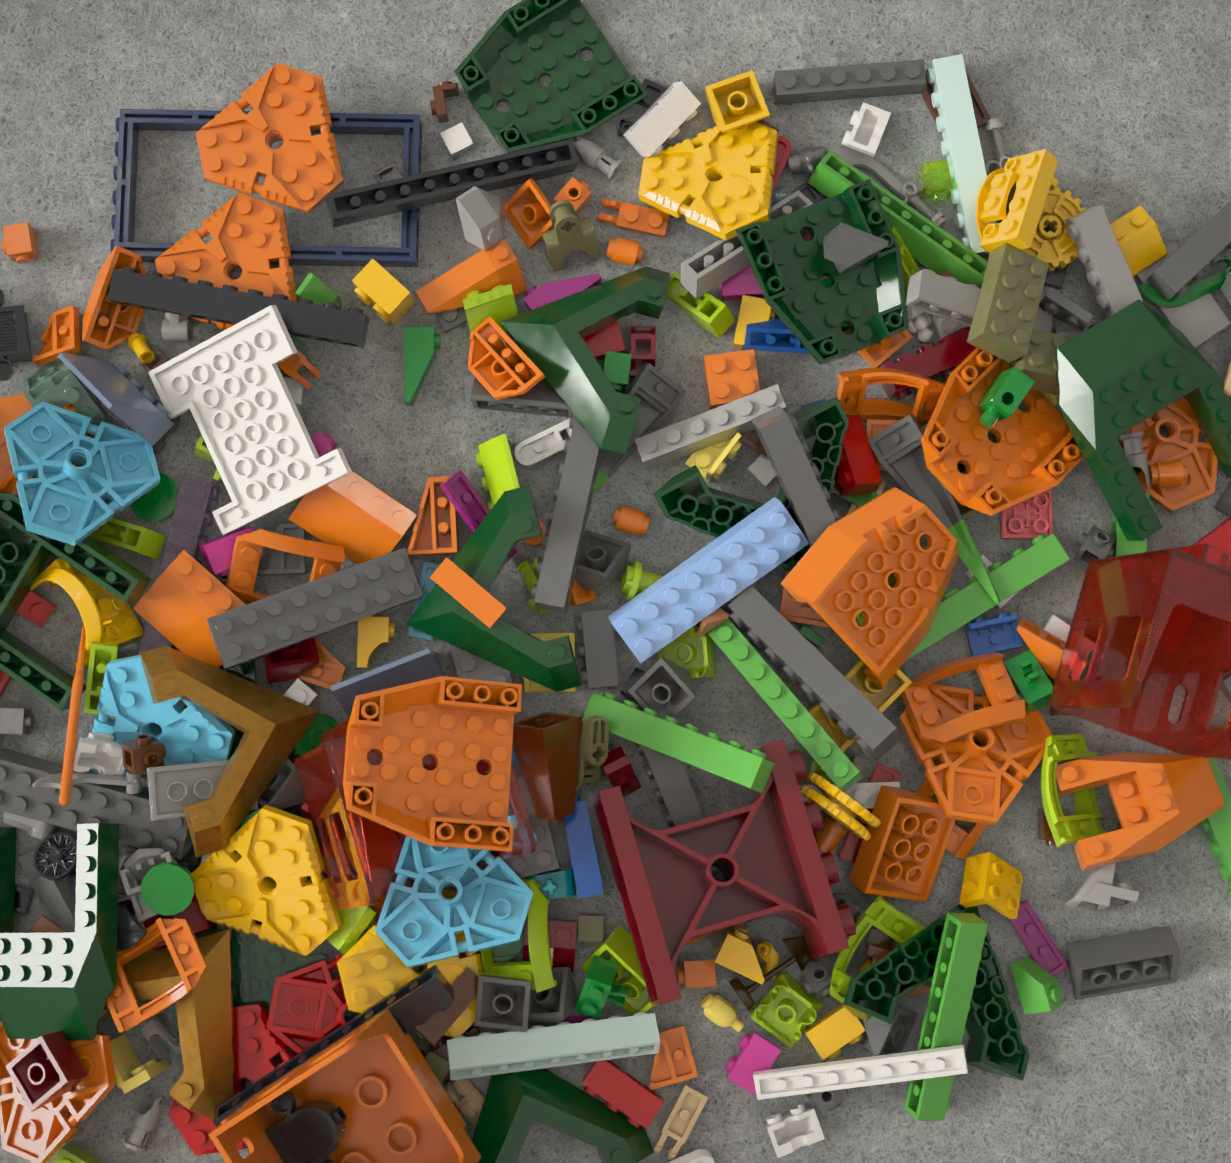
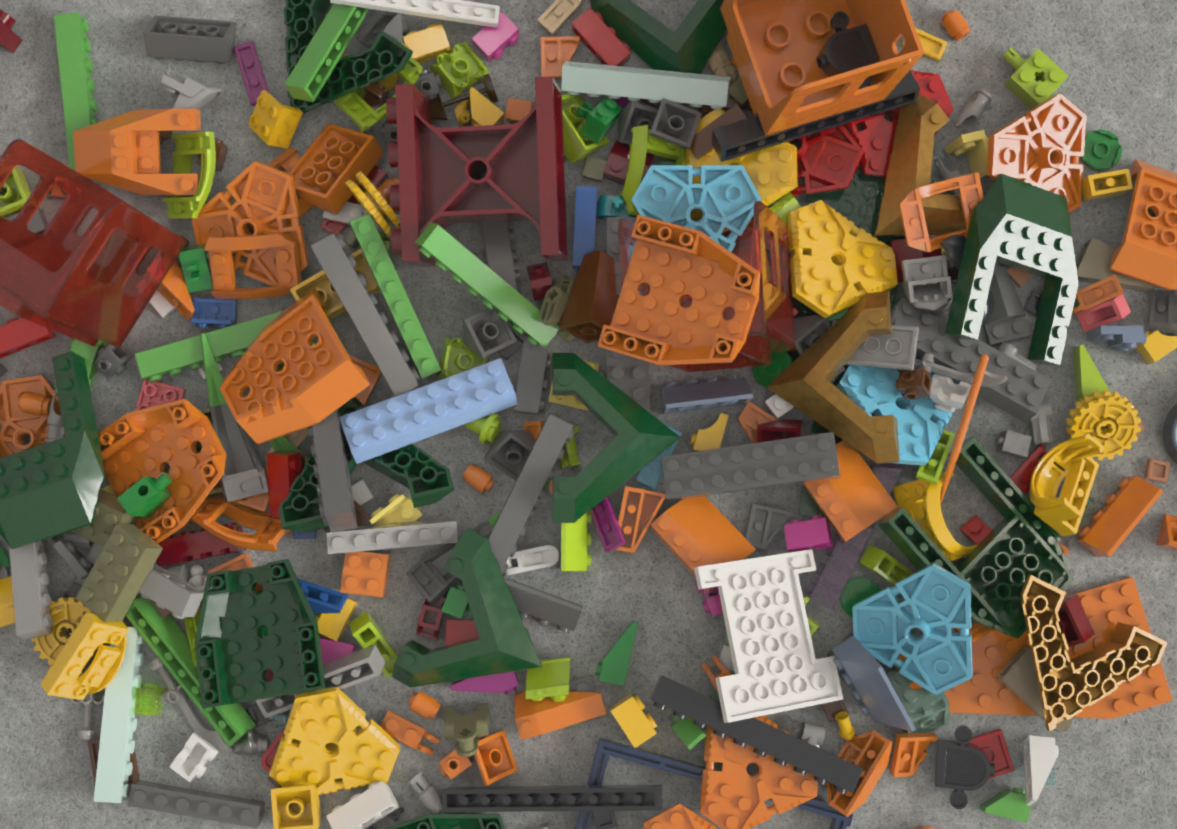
camera: 165 degrees left, 0 degrees up
(46, 1070) = (1040, 158): dark red slope -> none
(56, 856) = (999, 326): black wheel -> none
(167, 888) = (917, 272): green tile -> none
(248, 553) = (794, 527): orange wedge -> none
(468, 592) = (623, 444): orange tile -> none
(481, 217) = (535, 761): light grey slope -> none
(500, 362) = (550, 631): orange wedge -> none
(712, 621) = (434, 377): nougat slope -> none
(721, 1012) = (510, 80): light yellow plant -> none
(812, 636) = (358, 347): green tile -> none
(851, 246) = (235, 651): dark grey slope -> none
(1036, 987) = (262, 36): bright green slope -> none

